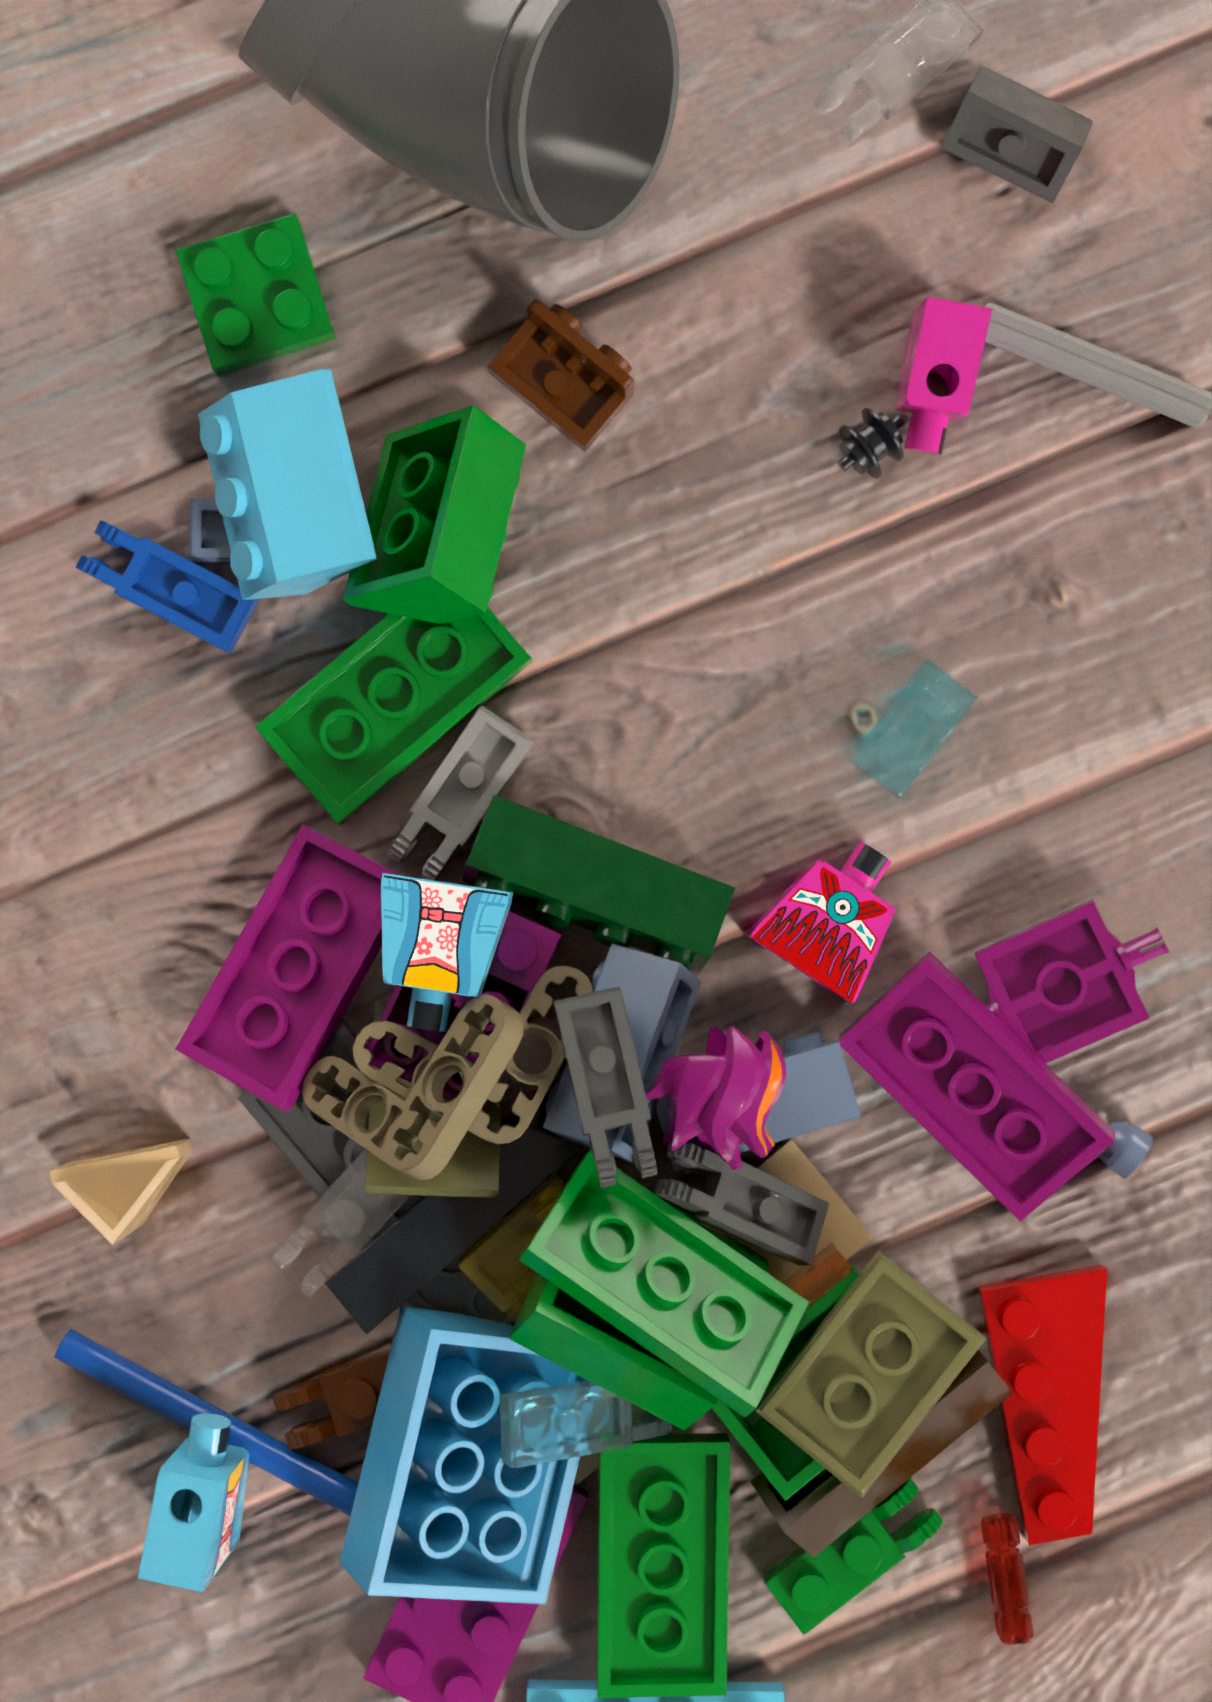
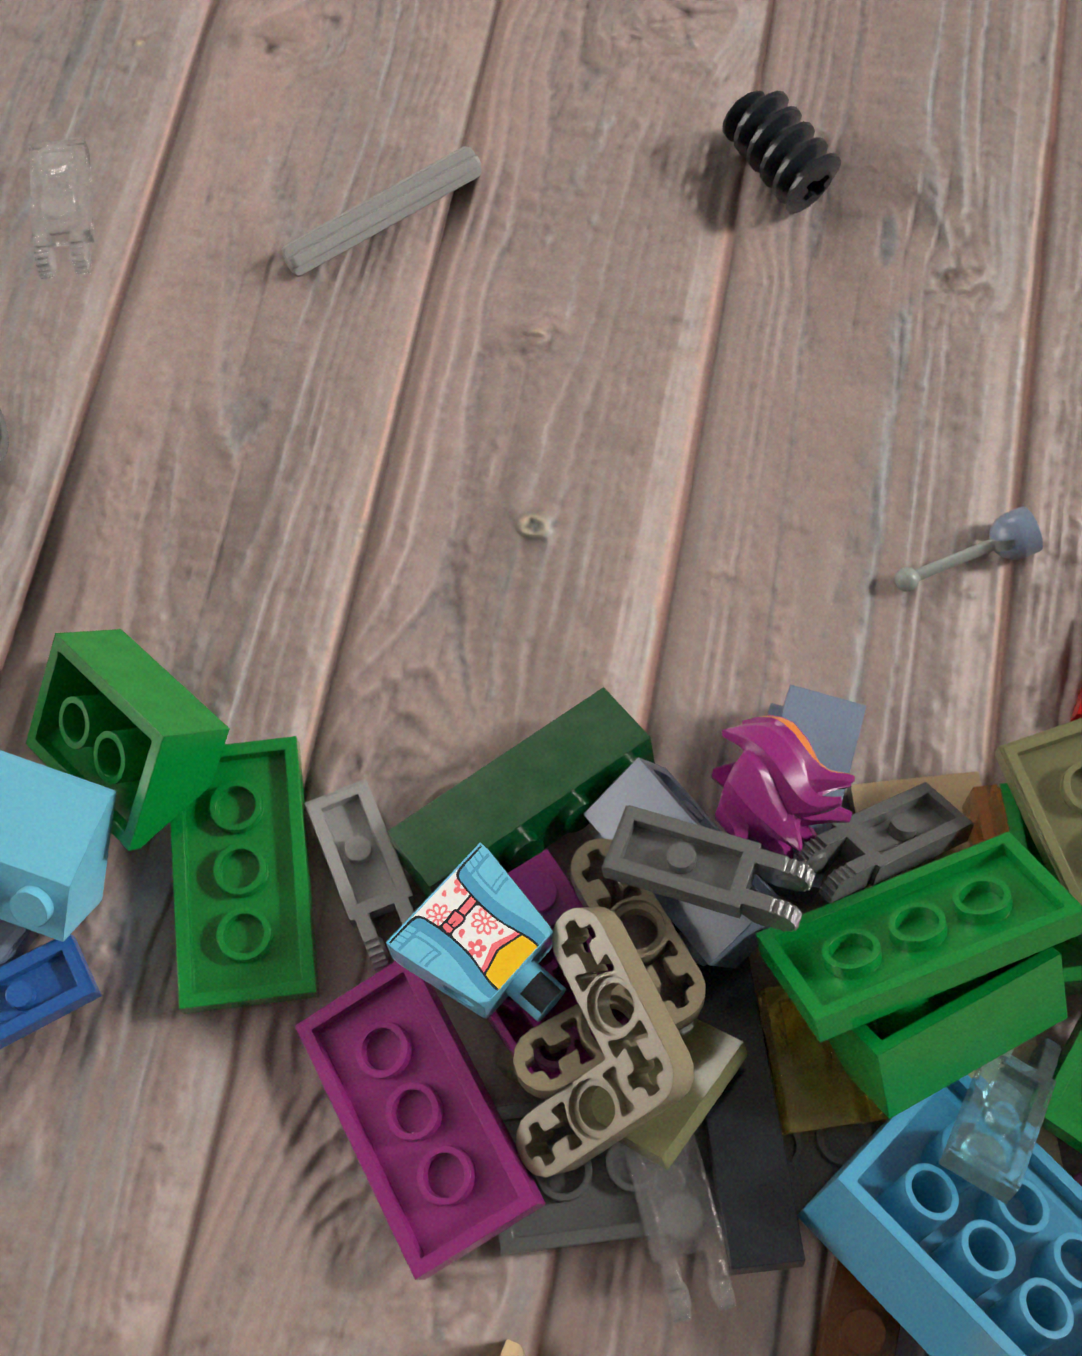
camera: 55 degrees left, 20 degrees down
(564, 374) = (89, 567): reddish brown bracket -> none
(830, 922) = (685, 642): torso -> none
(871, 443) = (322, 383): black wheel -> none
(912, 728) = (567, 491): clear light blue hinge -> none
(947, 342) = (301, 295): dark pink torso -> none
(976, 1087) = (895, 609): magenta plate -> none
(1017, 134) = (178, 163): dark grey panel -> none
(1067, 981) = (850, 498): magenta plate -> none

